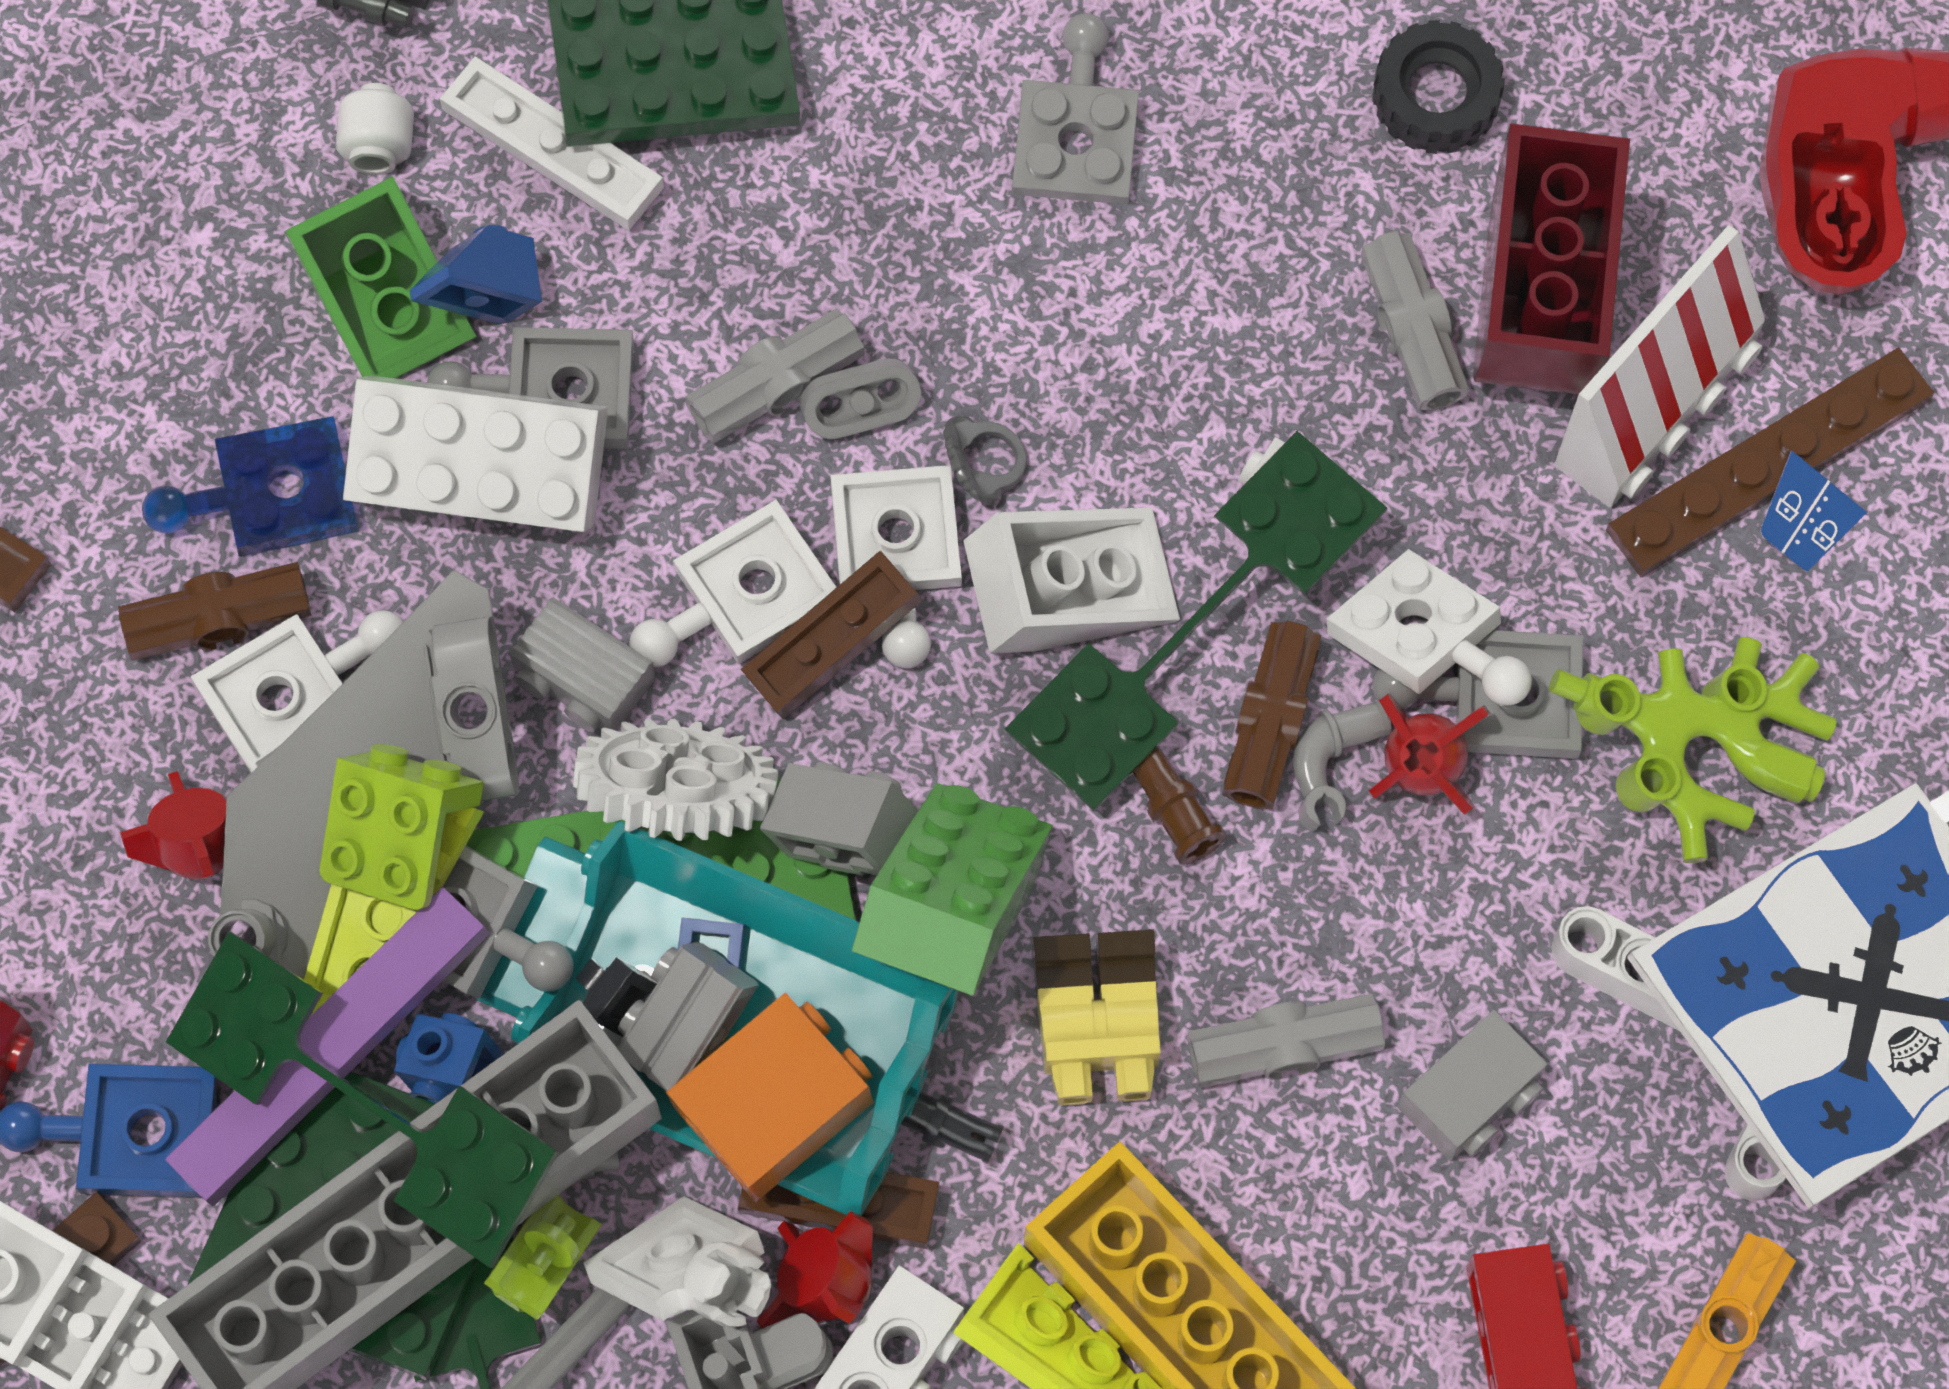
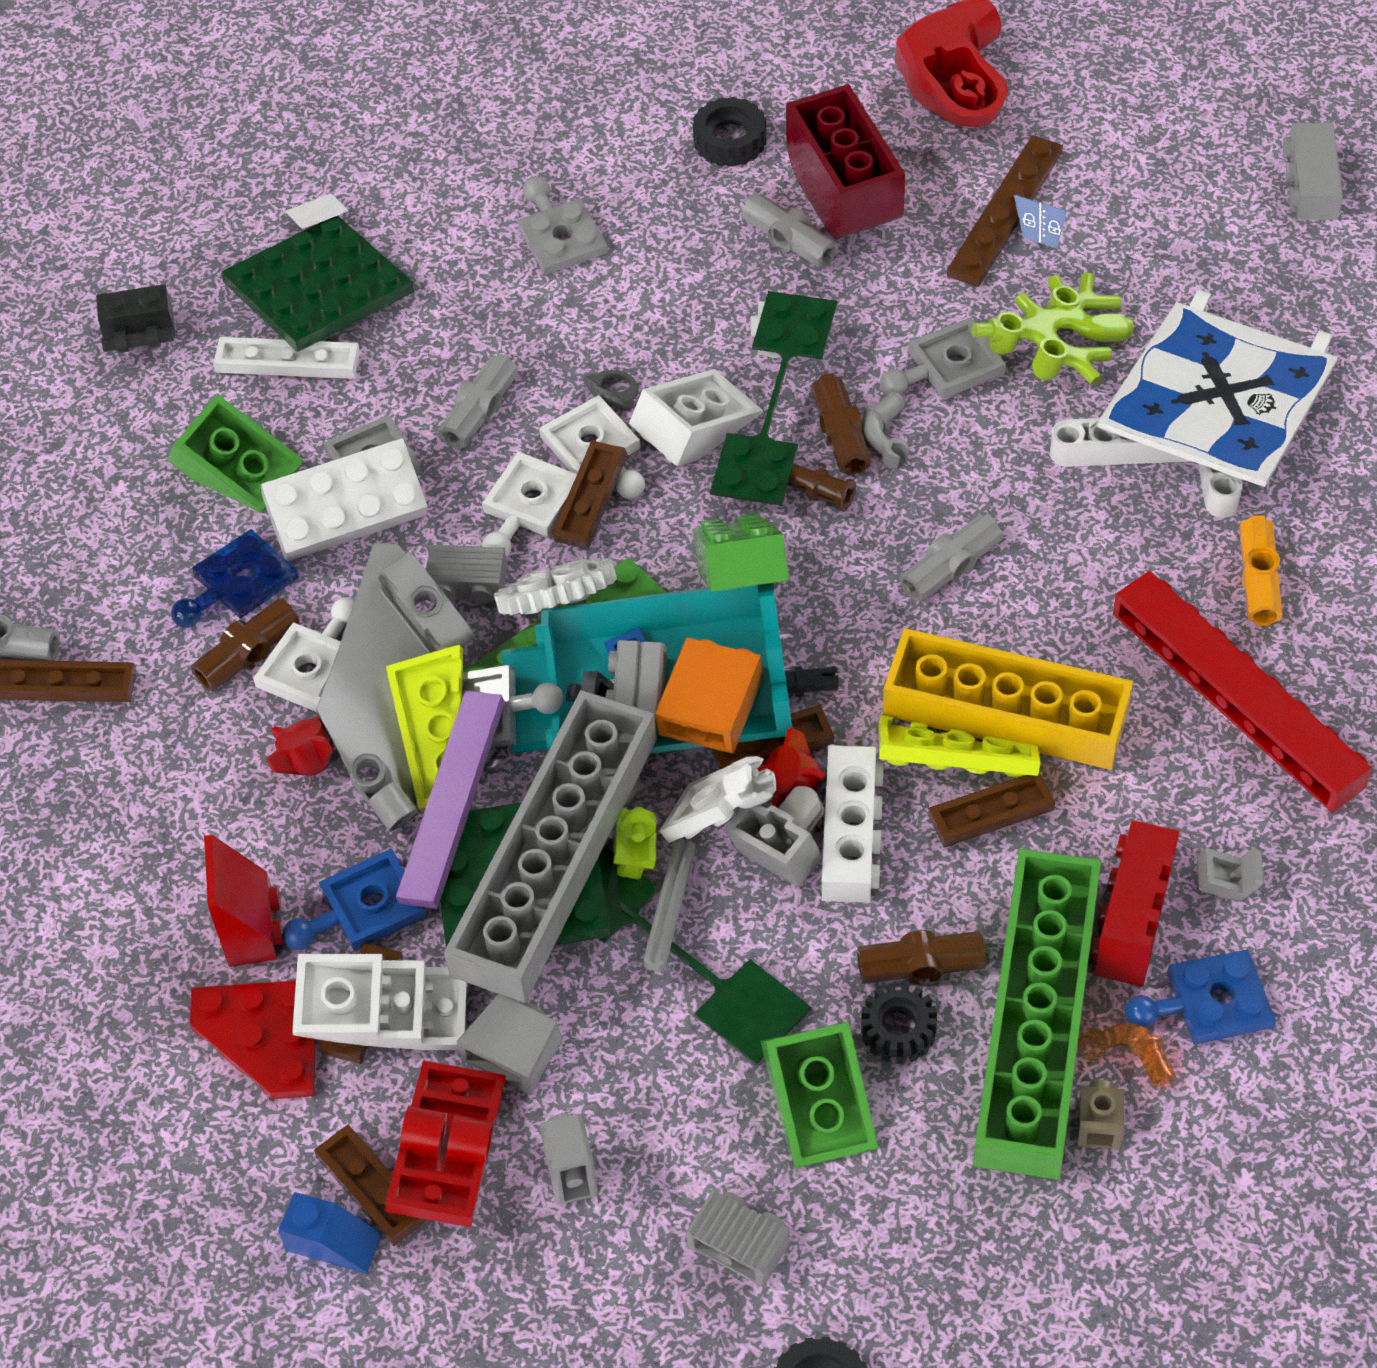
camera: 25 degrees left, 15 degrees down
(374, 129) = (185, 393): white head -> none
(391, 822) = (418, 675): lime bracket -> none
(443, 1055) = (514, 774): blue brick -> none
(469, 1170) = (579, 790): dark green hinge -> none
(484, 277) = (295, 425): blue slope -> none
(838, 817) = (658, 560): light grey brick -> none
(859, 402) = (528, 391): light grey plate -> none
(1100, 1034) = (846, 590): light yellow hips -> none
(1423, 652) = (893, 348): white plate -> none
(1427, 753) = (931, 400): red piece -> none
(1474, 1087) = (1059, 530): light grey brick -> none
(1664, 375) = (932, 187): white slope -> none

